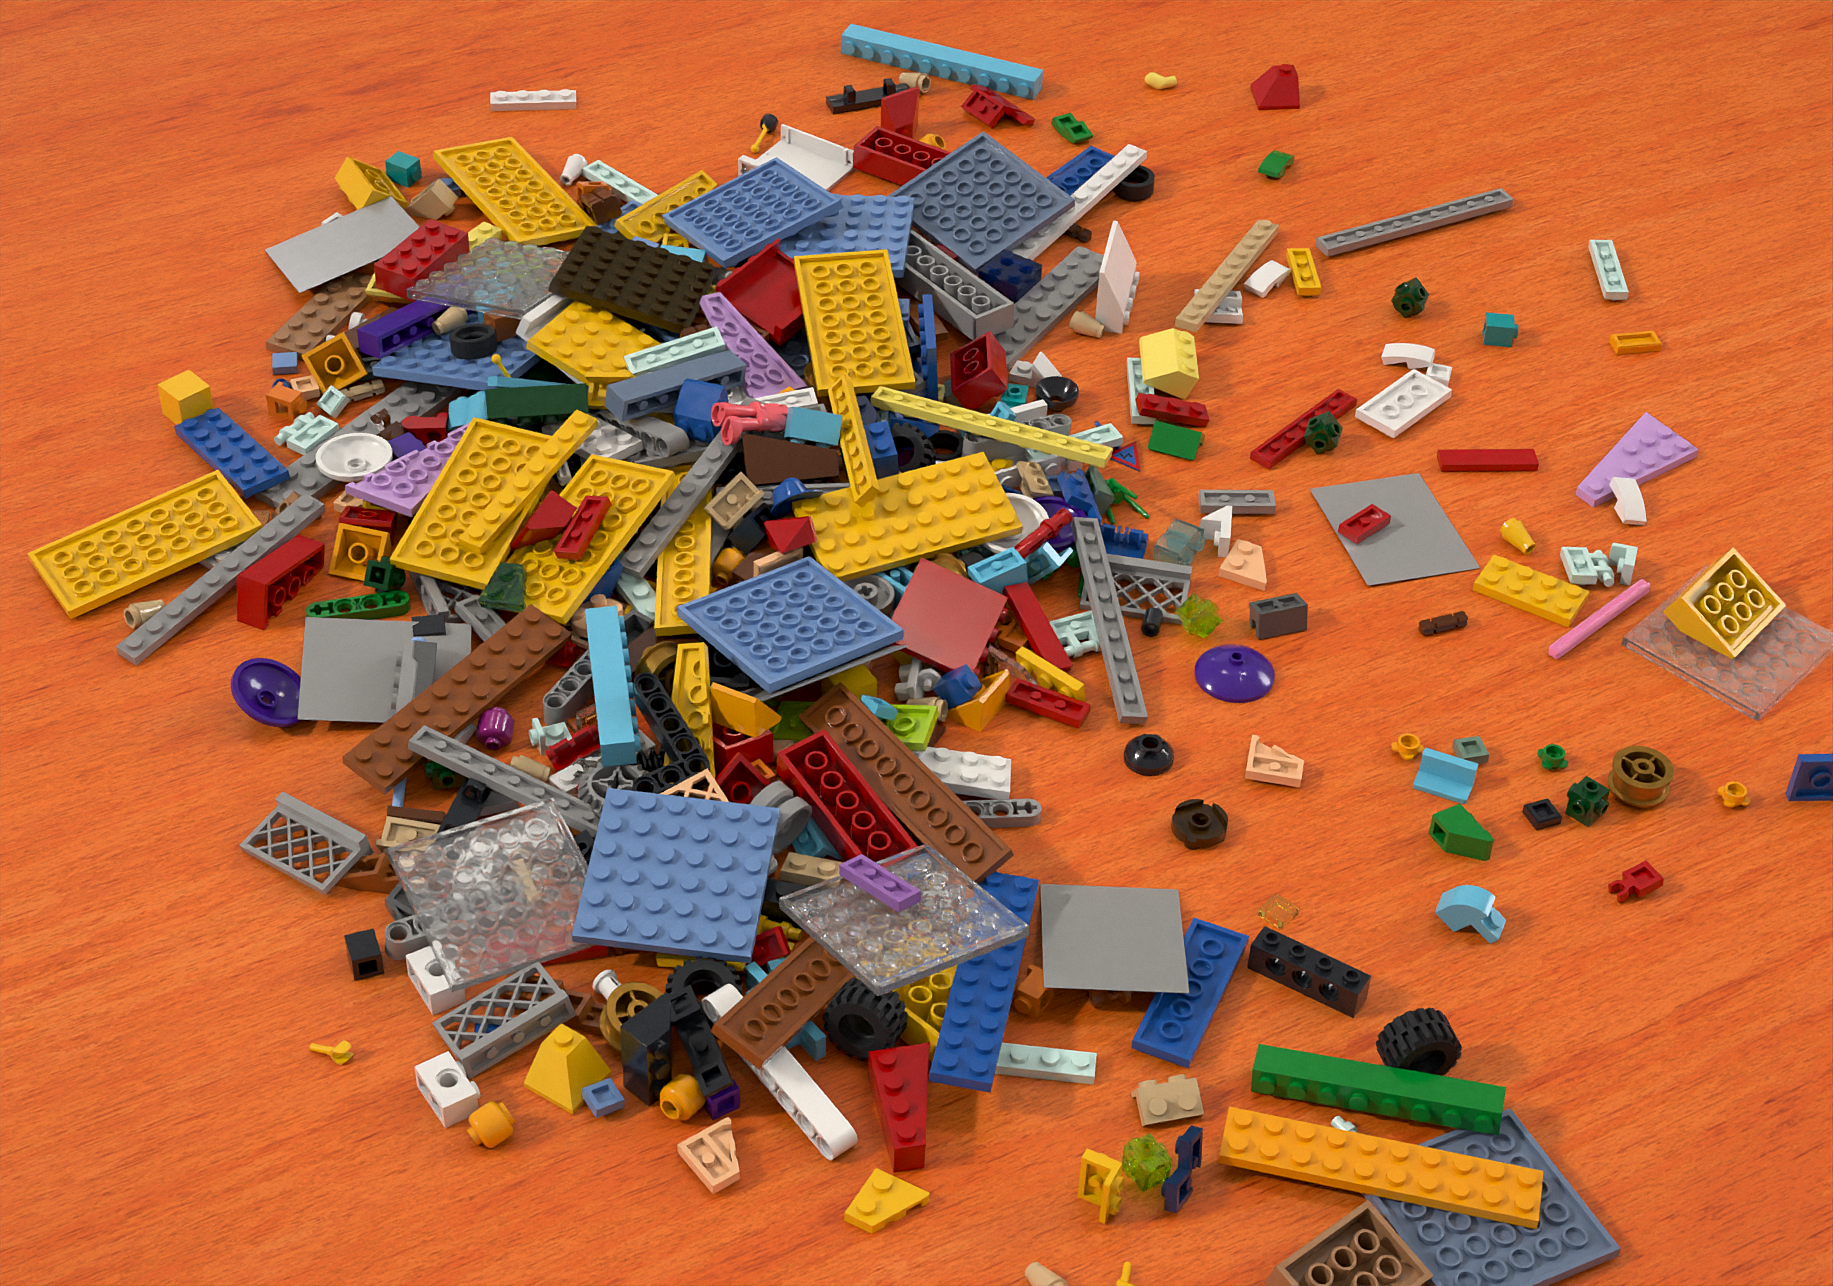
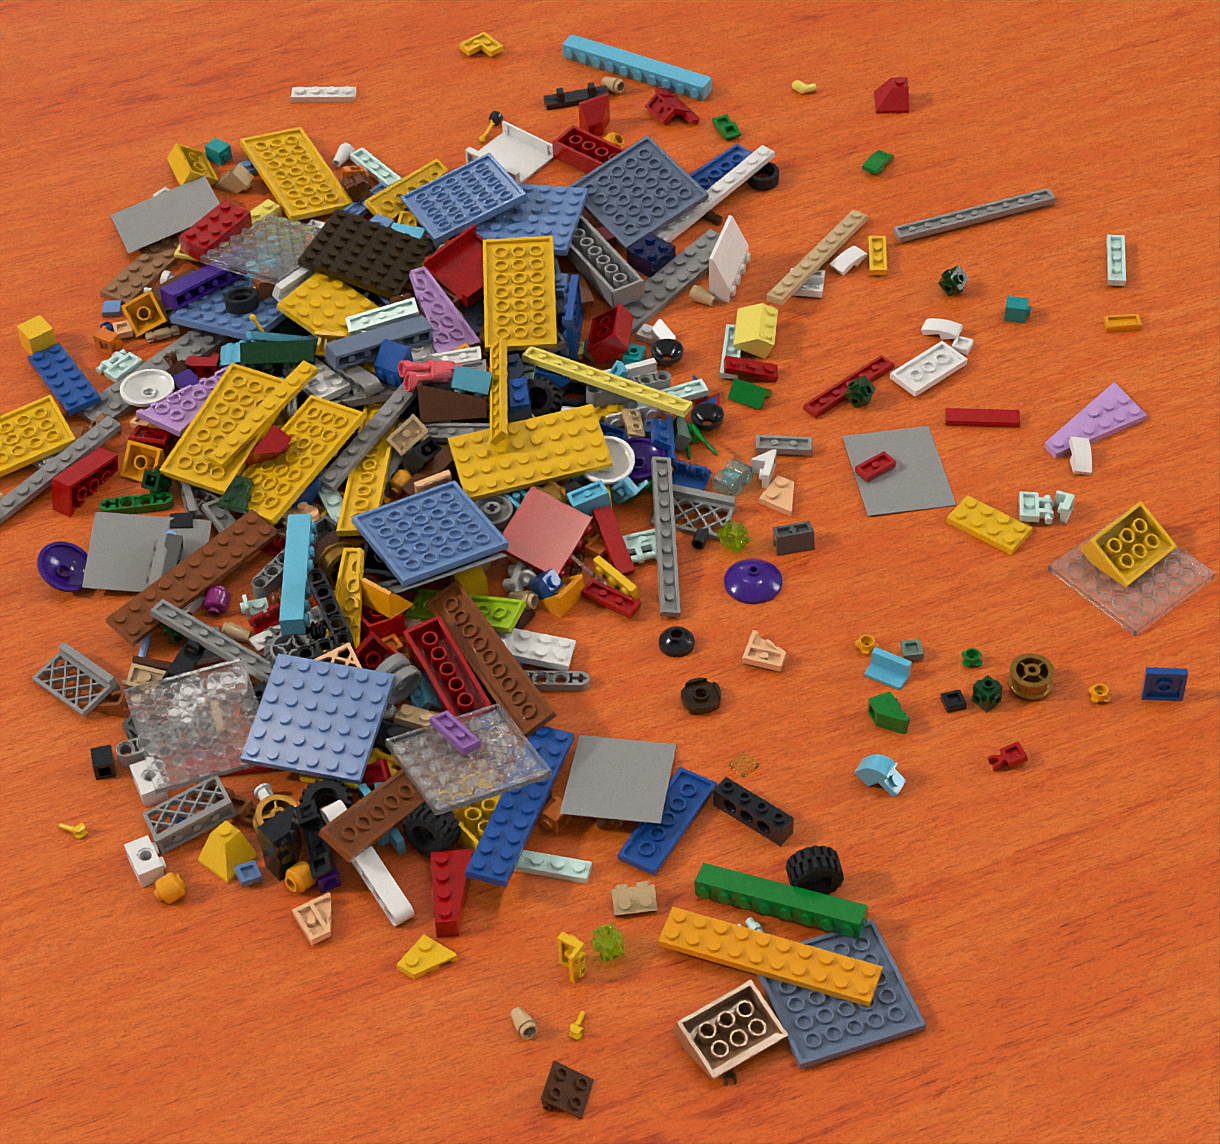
camera: 10 degrees right, 5 degrees up
(333, 401) = (141, 341): light aqua tile -> none
(450, 320) = (229, 281): tan cone -> none
(582, 527) = (294, 452): red plate -> none
(733, 36) = (481, 42): none -> yellow plate
(788, 492) = (447, 430): blue piece -> none
(790, 533) = (442, 462): red slope -> none
(879, 707) = (482, 599): medium azure plate -> none
(1047, 530) = (630, 466): red pin -> none
(1128, 465) = (707, 412): none -> black piece
(1178, 1186) = (627, 960): dark blue plate -> none
(1443, 623) = (916, 548): reddish brown axle -> none
(1517, 535) = (987, 479): yellow cone -> none
(1599, 619) = (1034, 550): bright pink axle -> none

